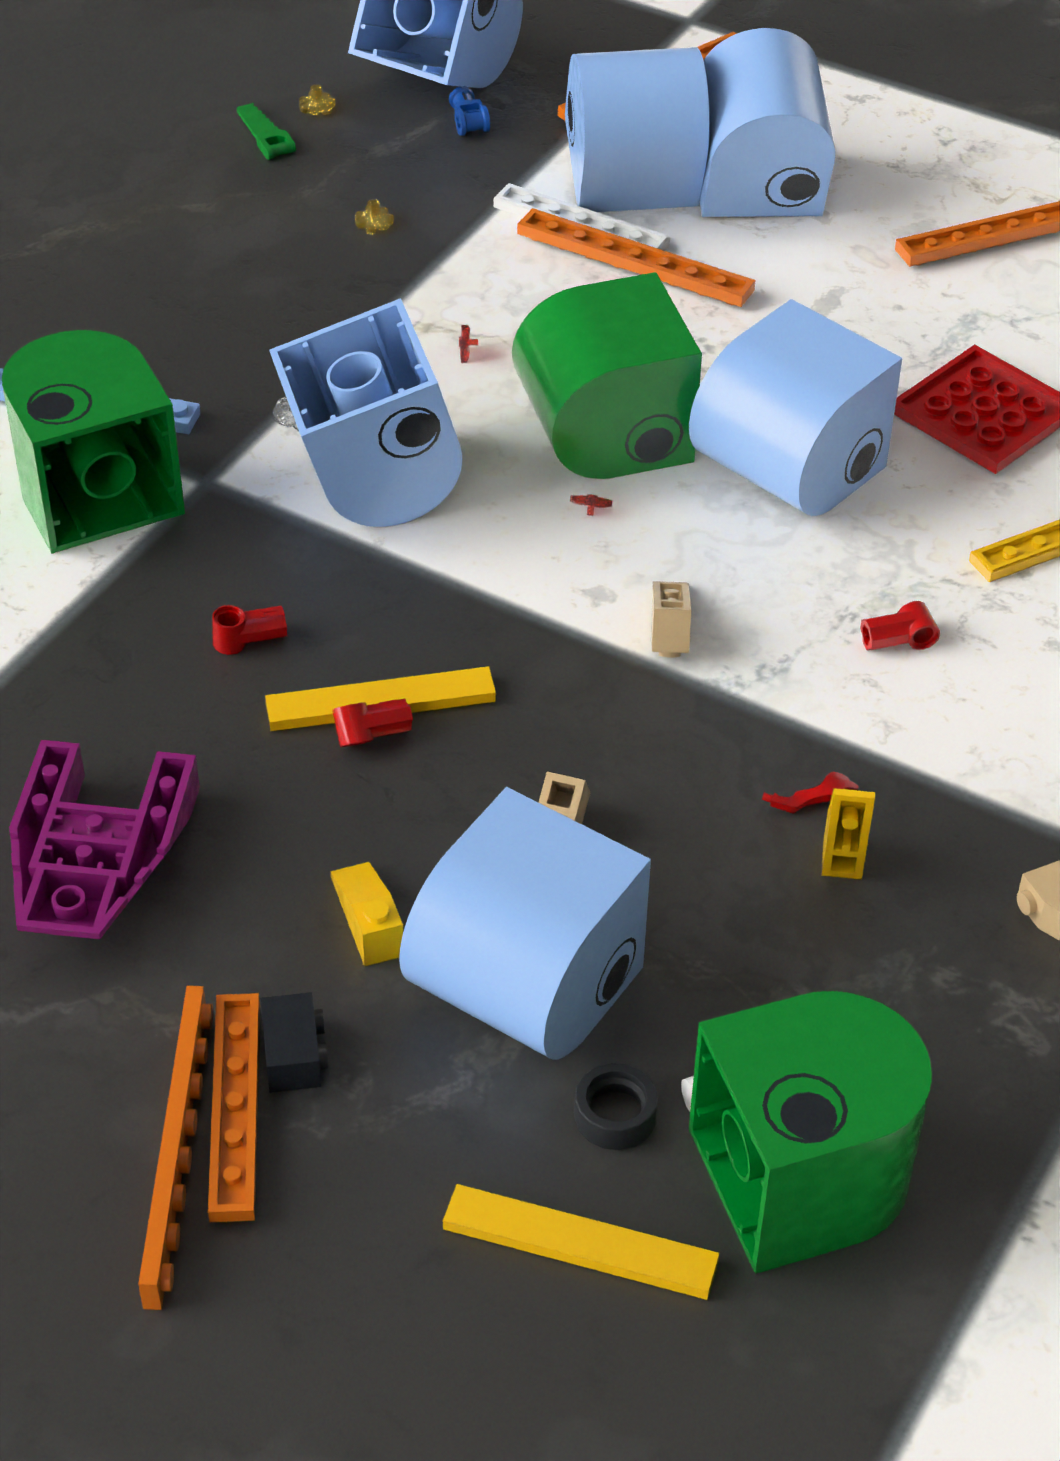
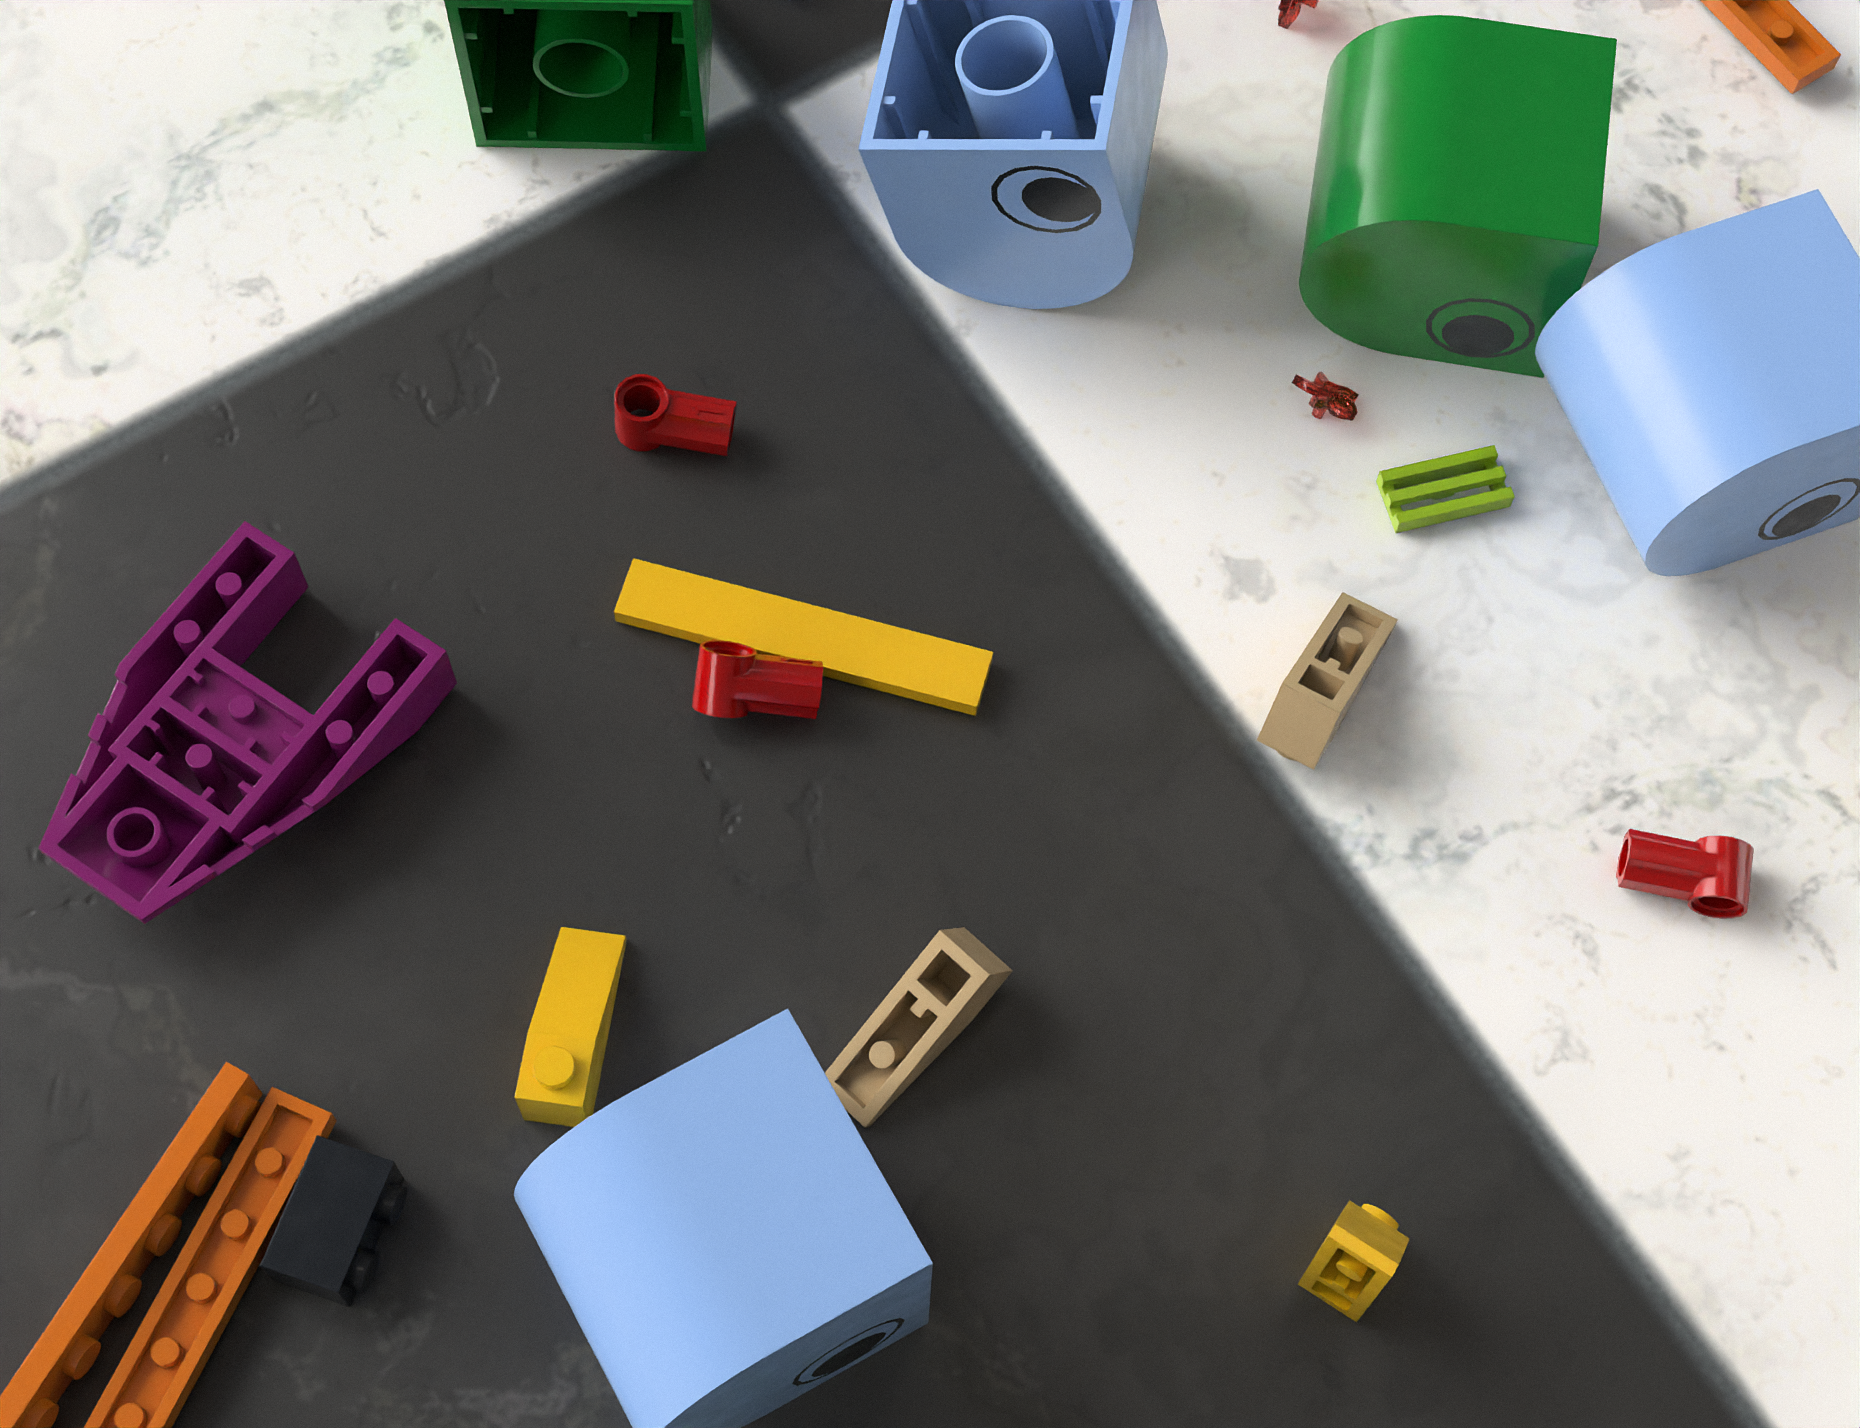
camera: 25 degrees right, 20 degrees up
(672, 518) = (1439, 468): none -> lime tile
(811, 796) = (1403, 1130): red hair -> none

